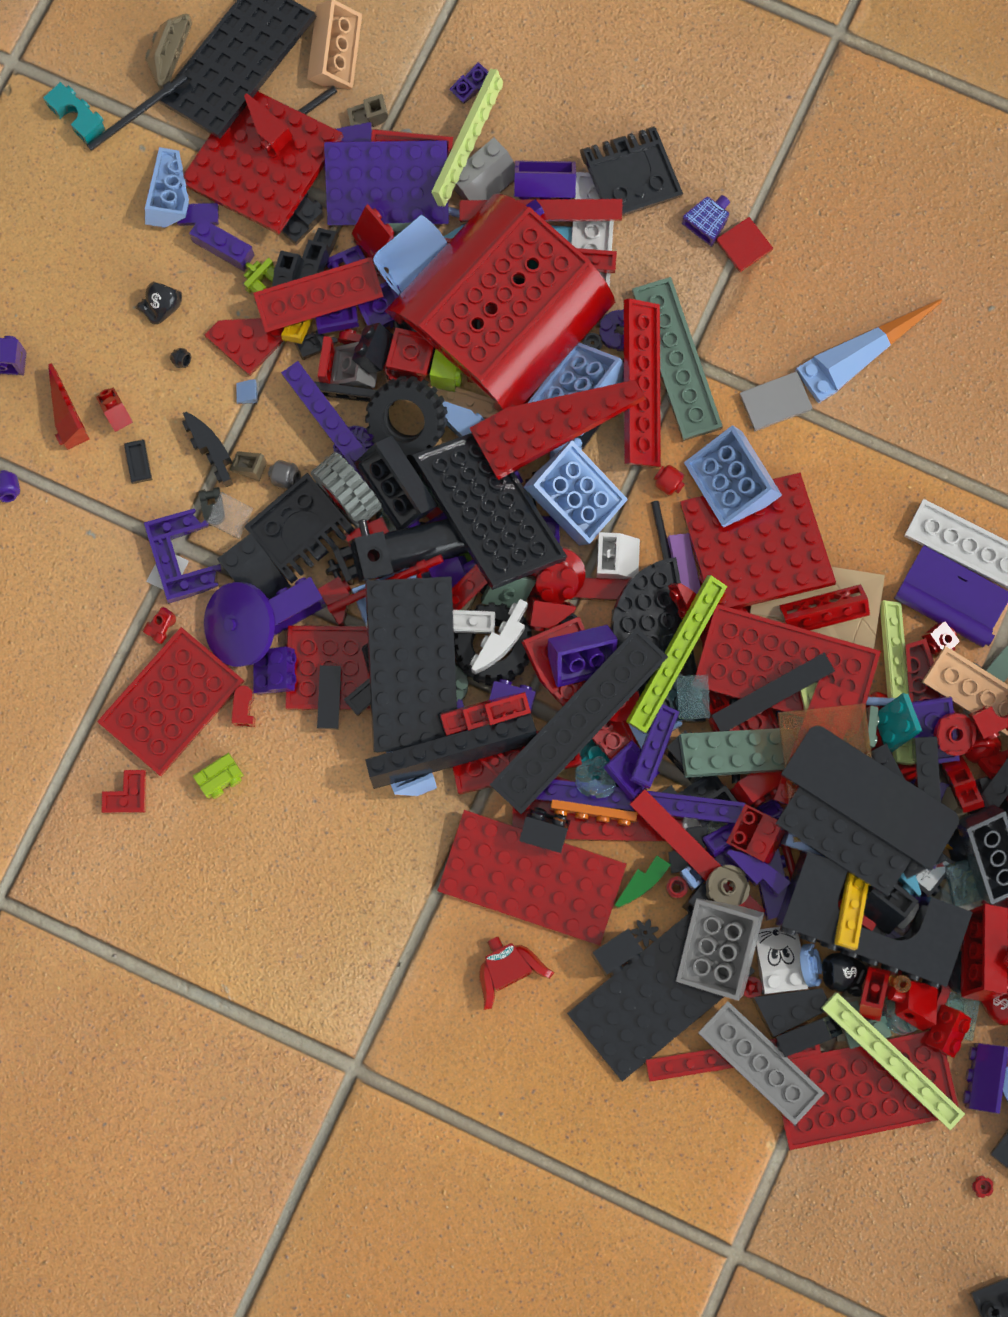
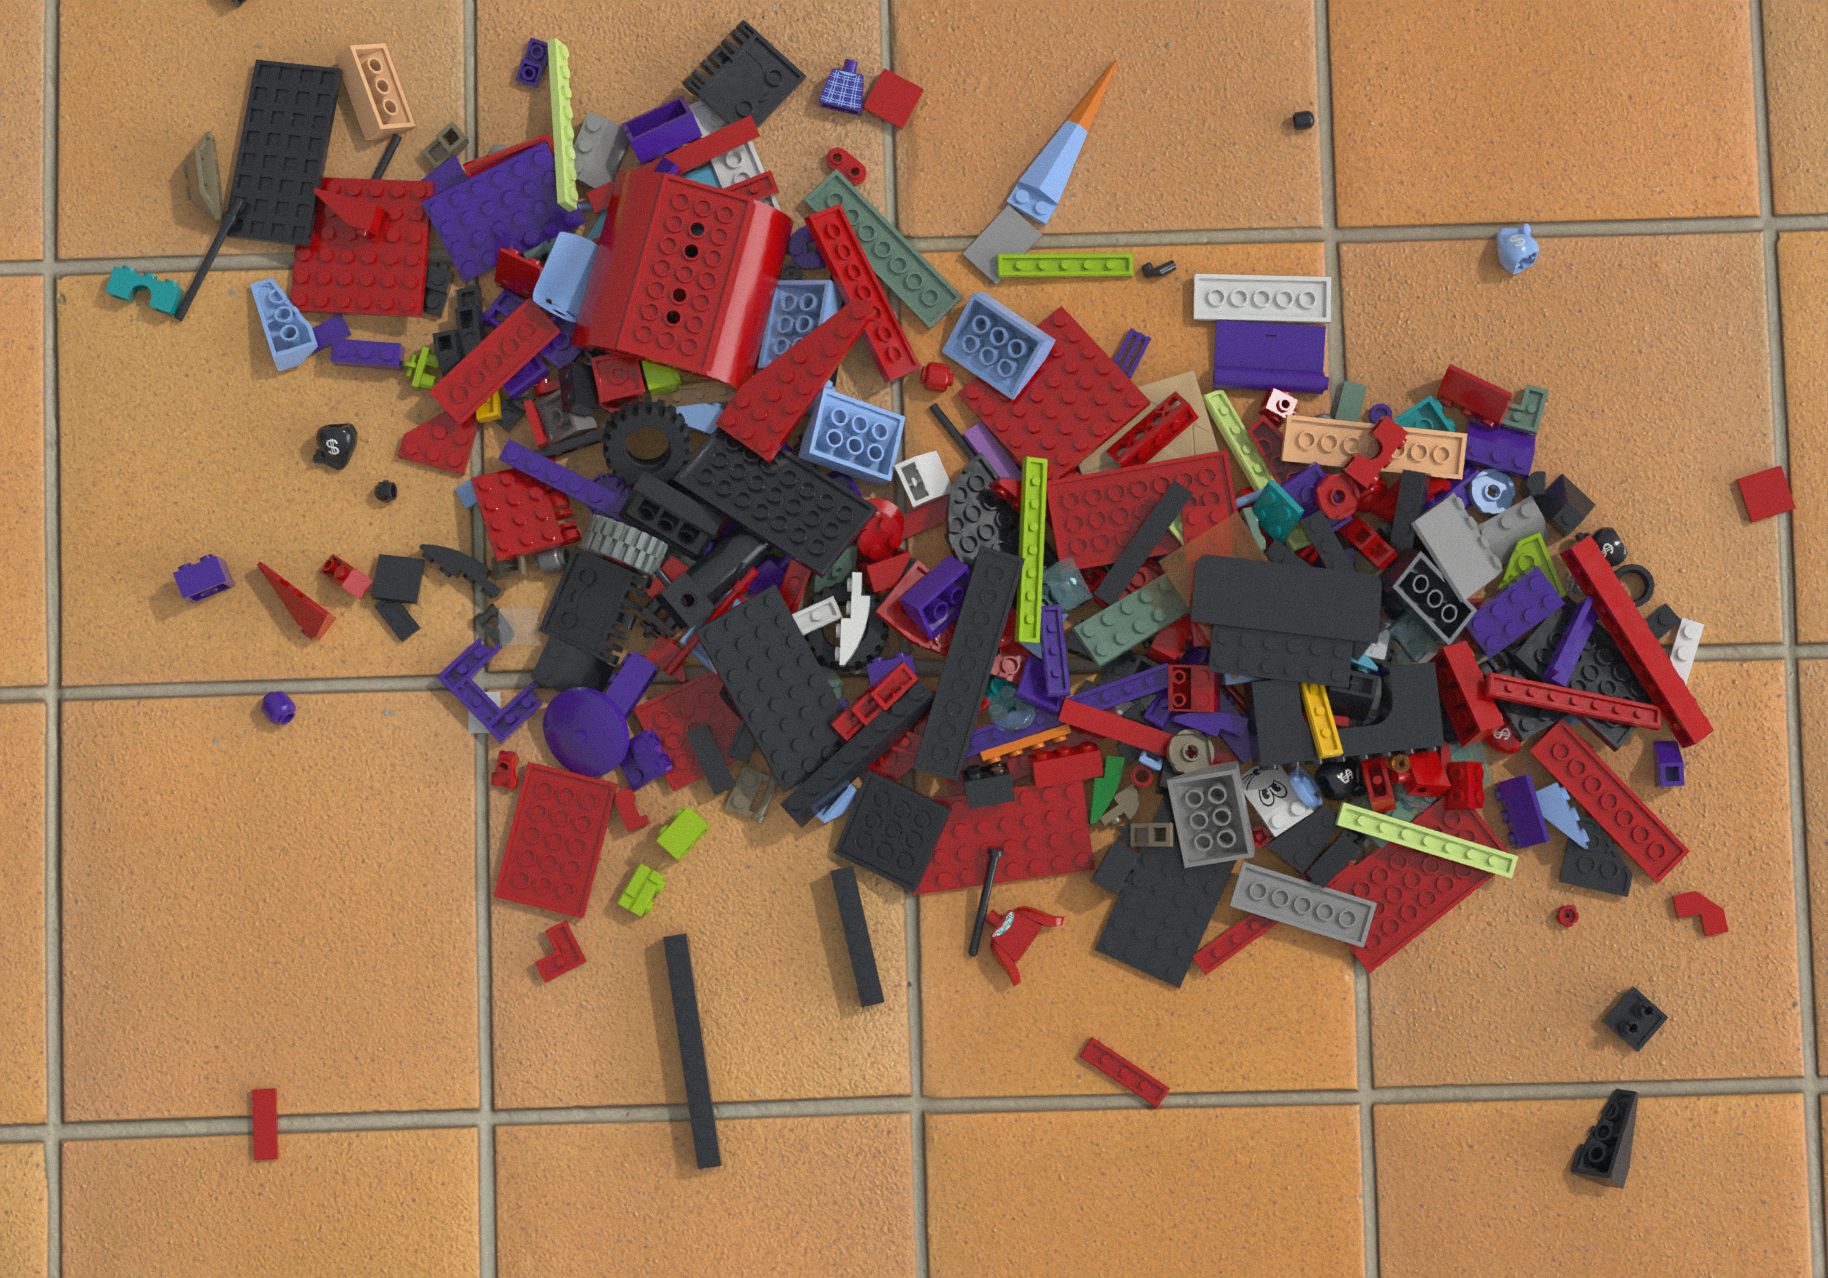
camera: 30 degrees left, 5 degrees up
(153, 431) = (398, 579): none -> black tile
(192, 929) = (692, 1051): none -> black brick
(275, 745) = (683, 832): none -> lime brick
(279, 426) = (522, 514): none -> red hinge
(345, 738) = (745, 793): none -> dark tan plate
(375, 902) = (857, 936): none -> black brick
(447, 829) = (892, 830): none -> black plate
(522, 890) = (994, 854): none -> black bar
(541, 1129) = (1124, 1072): none -> red tile
(618, 846) = (1065, 764): none -> red brick
(653, 904) = (1127, 803): none -> dark tan brick
(661, 940) = (1151, 834): none -> dark tan brick
(680, 278) = (846, 165): none -> red plate
(819, 441) = (1065, 265): none -> lime tile
(852, 528) = (1139, 336): none -> dark purple tile
(897, 483) = (1159, 271): none -> black arm

